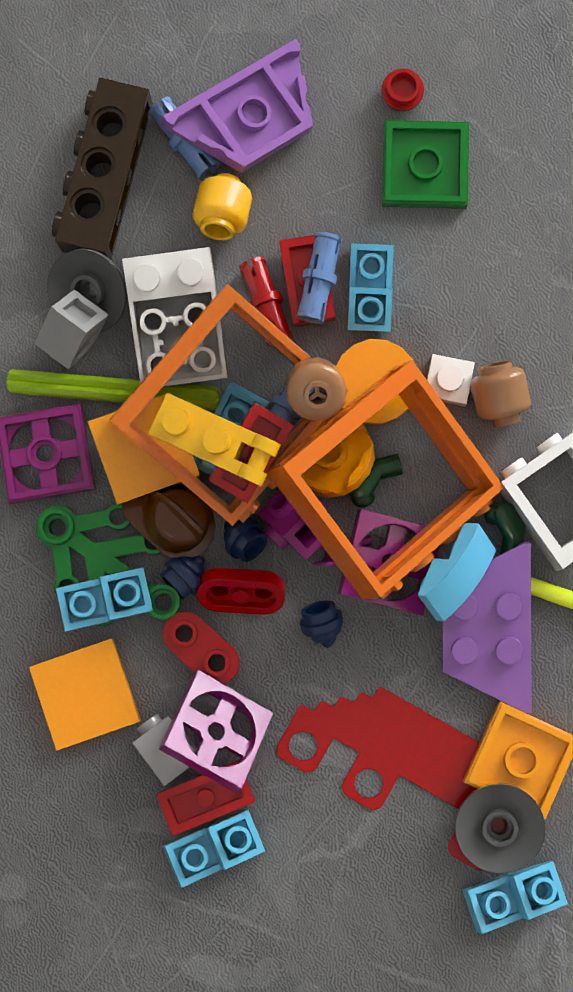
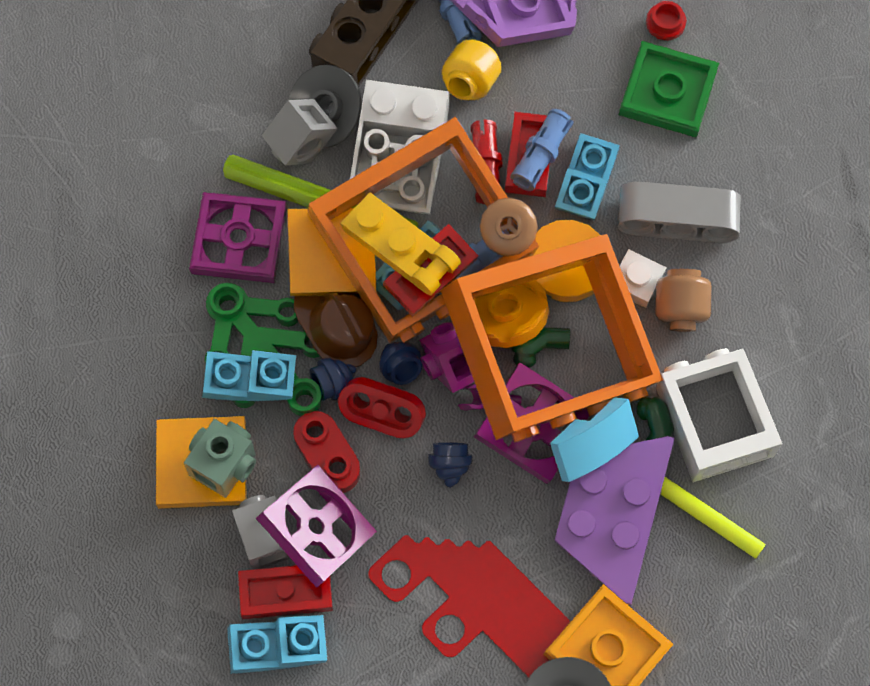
camera: 10 degrees right, 15 degrees down
(91, 704) = (221, 456): none -> sand green brick
(472, 299) = (679, 212): none -> light grey beam

